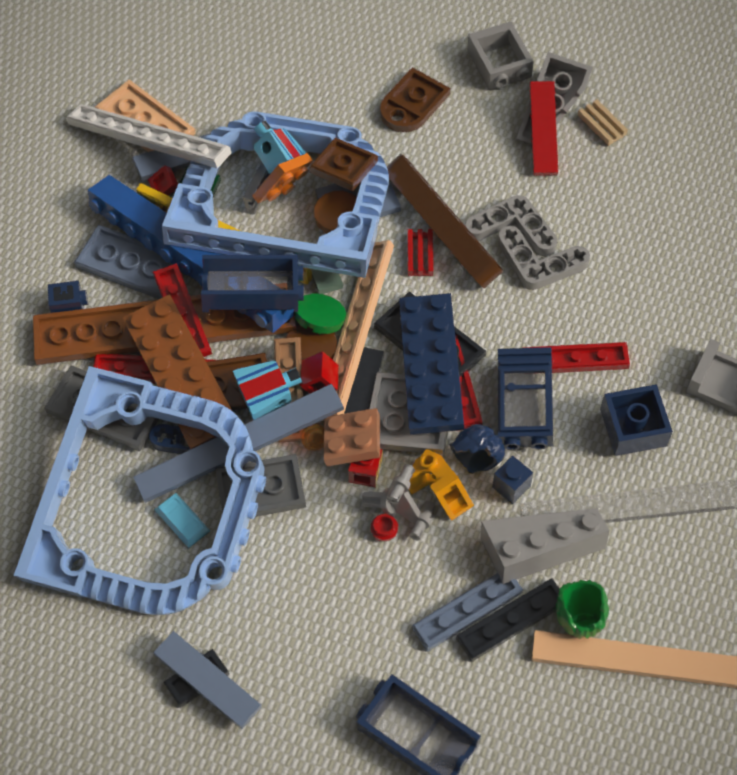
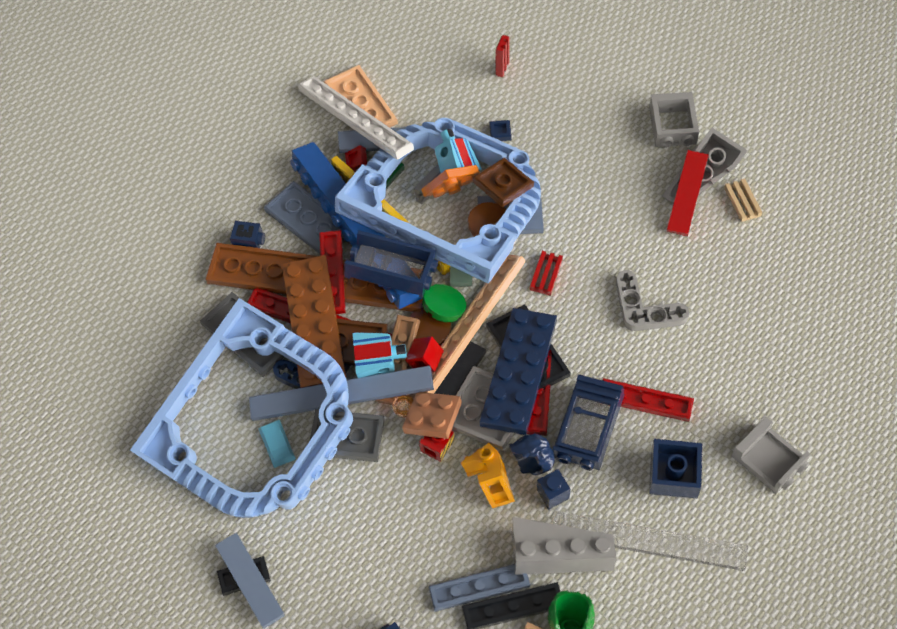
camera: 20 degrees right, 0 degrees up
(291, 30) = (502, 55): none -> red tile
(315, 111) = (500, 130): none -> dark blue tile
(384, 527) = (434, 498): red plate -> none
(399, 500) = (449, 478): light grey axle -> none
(414, 100) = (586, 140): reddish brown tile -> none
(443, 221) = (573, 252): reddish brown beam -> none
(511, 217) = (636, 262): light grey beam -> none

